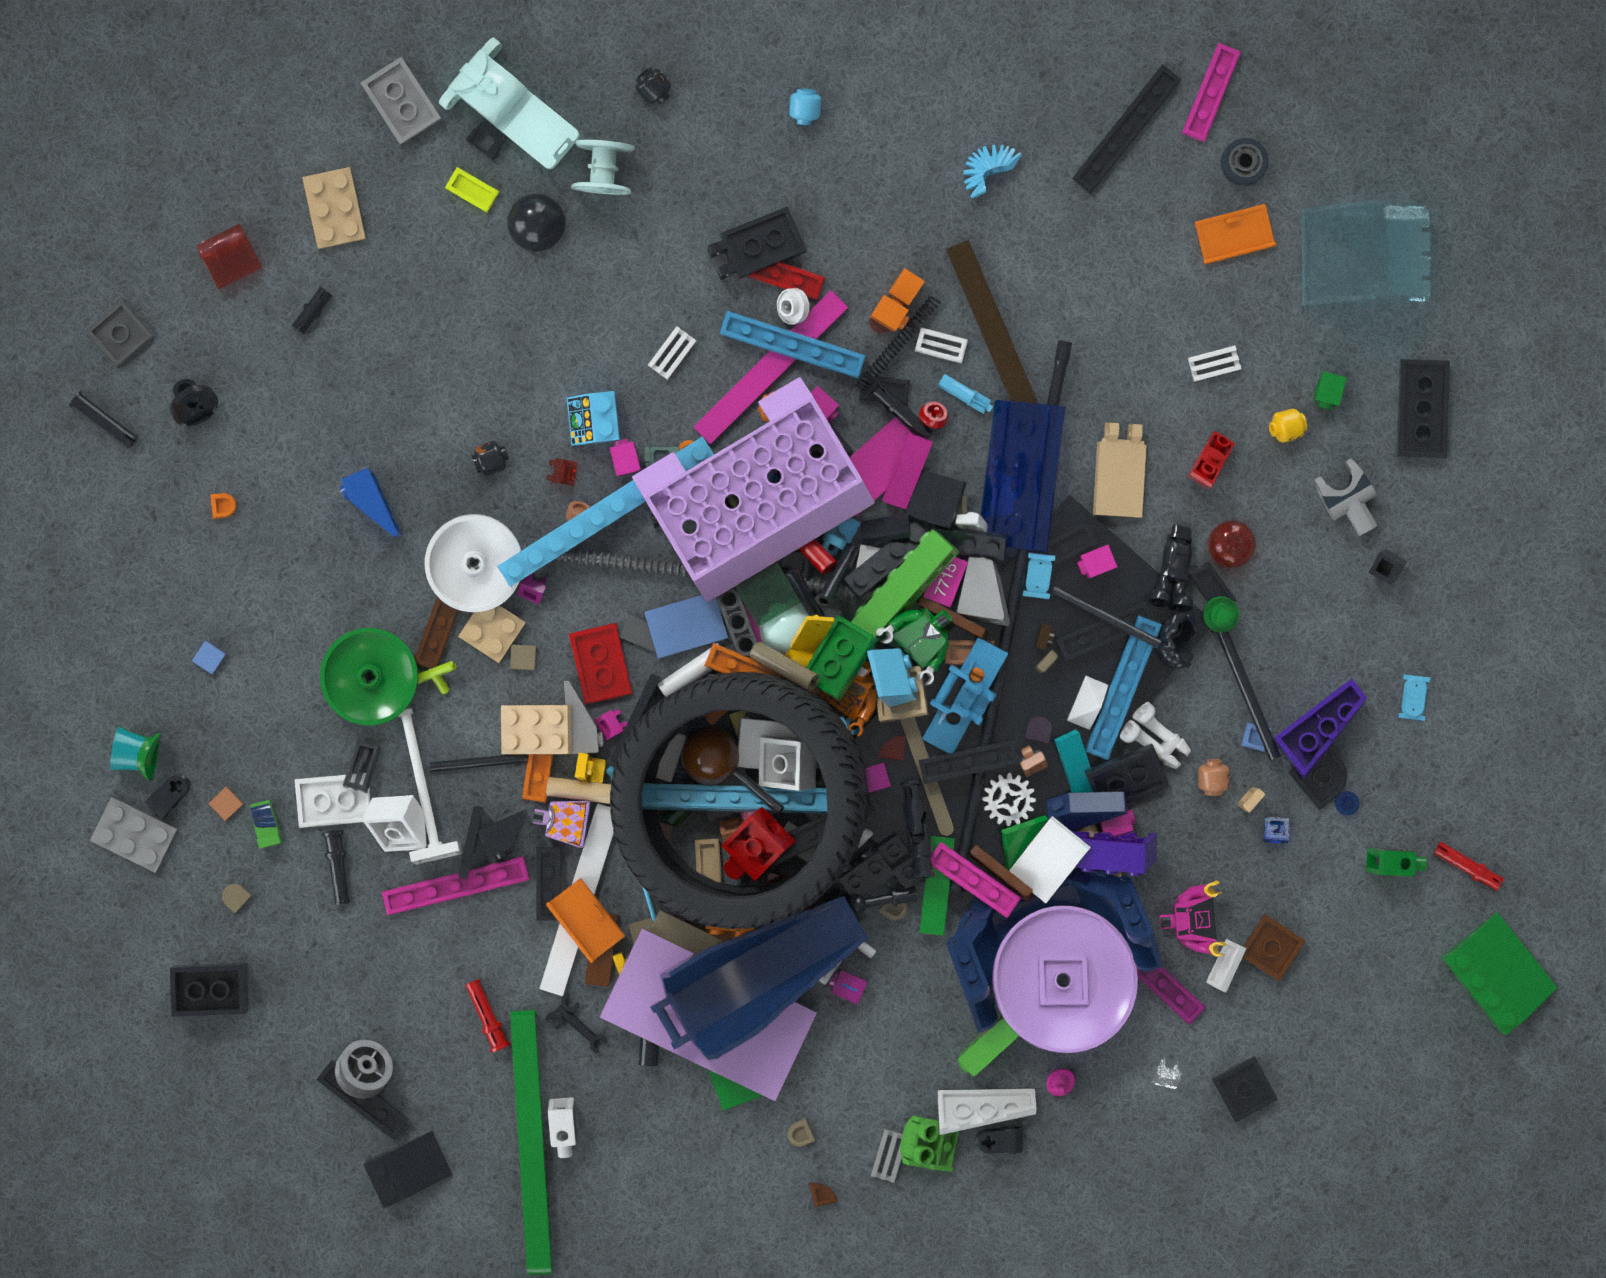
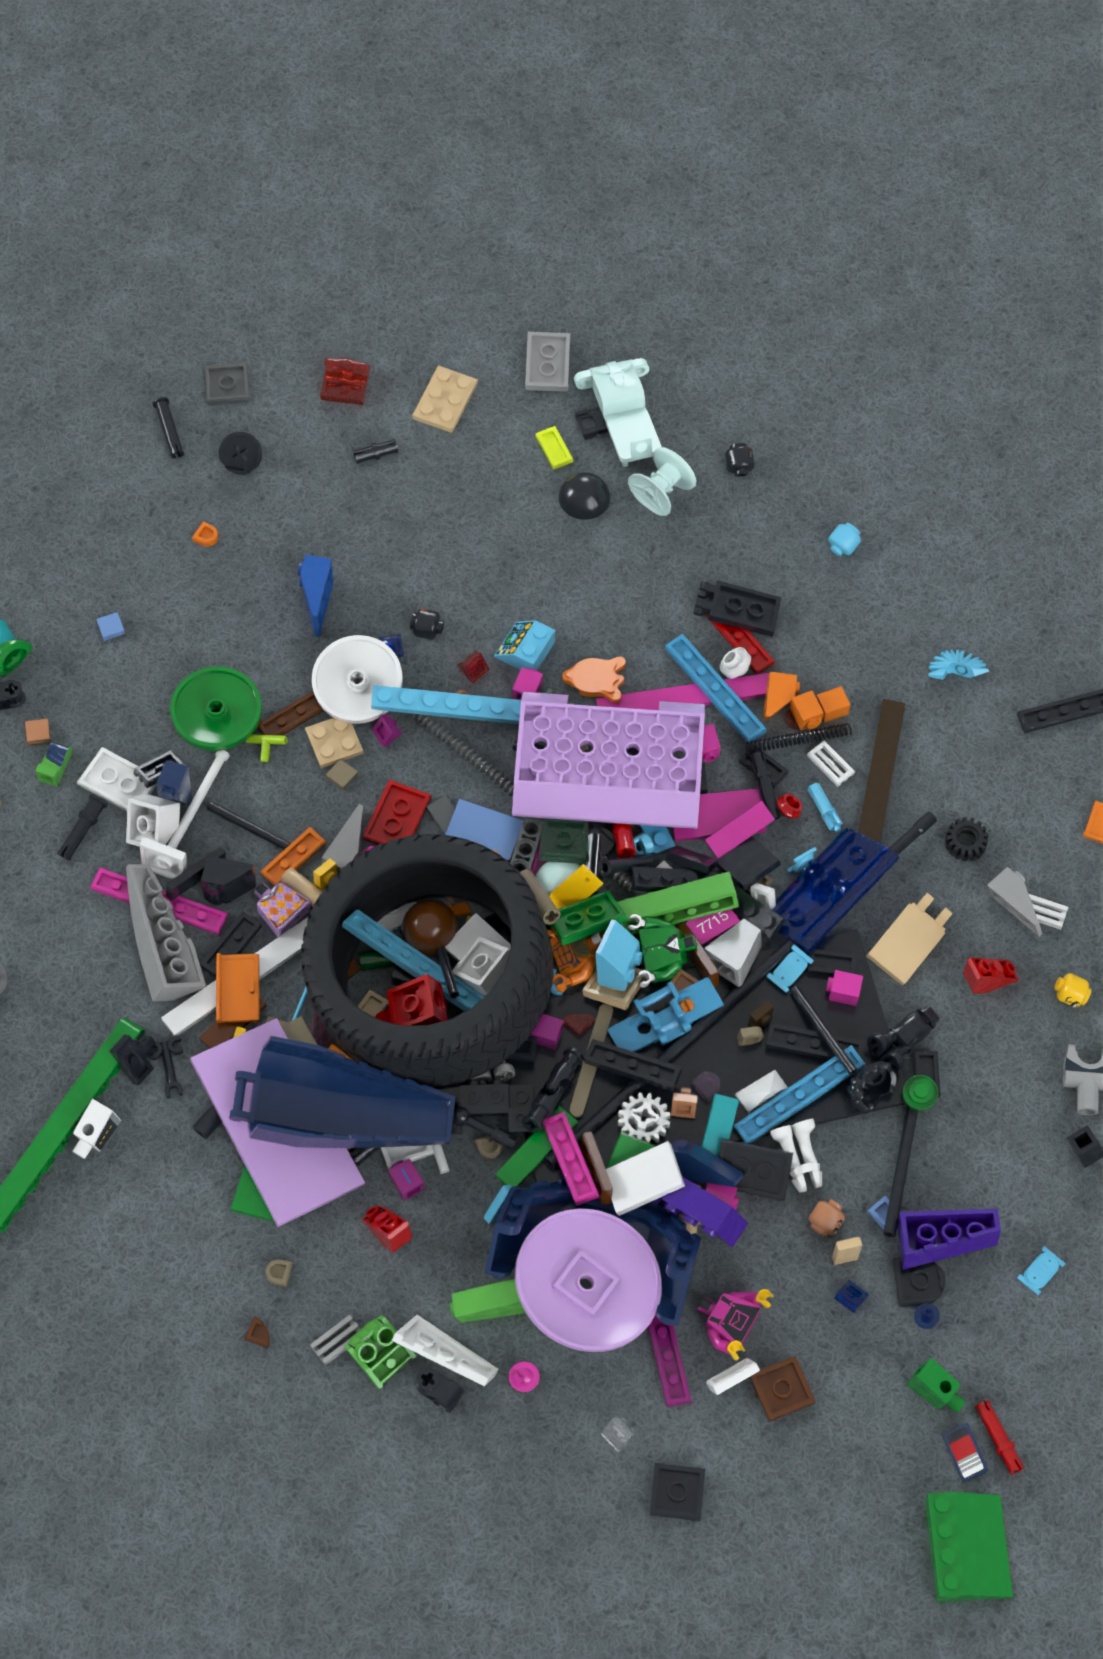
camera: 30 degrees right, 25 degrees down
(399, 787) = (175, 783): none -> dark blue slope
(474, 501) = (394, 643): none -> clear blue tile
(491, 1026) = (101, 1020): red pin -> none
(494, 927) = (163, 948): none -> light grey wedge
(536, 729) = (311, 826): tan plate -> none
(546, 1043) = (133, 1055): none -> black hinge
(678, 406) = (597, 678): none -> tile
(684, 335) = (621, 648): white tile -> none
(854, 312) = (779, 692): none -> orange slope
(863, 1039) = (388, 1227): none -> red slope
(940, 954) = (495, 1208): none -> medium azure tile
(983, 466) = (802, 861): none -> medium azure piece
(1122, 340) = (972, 828): none -> black tyre
(1186, 371) = (1011, 893): none -> light grey slope
(1231, 544) = (965, 1050): clear red cylinder -> none
(1449, 897) = (965, 1452): none -> slope

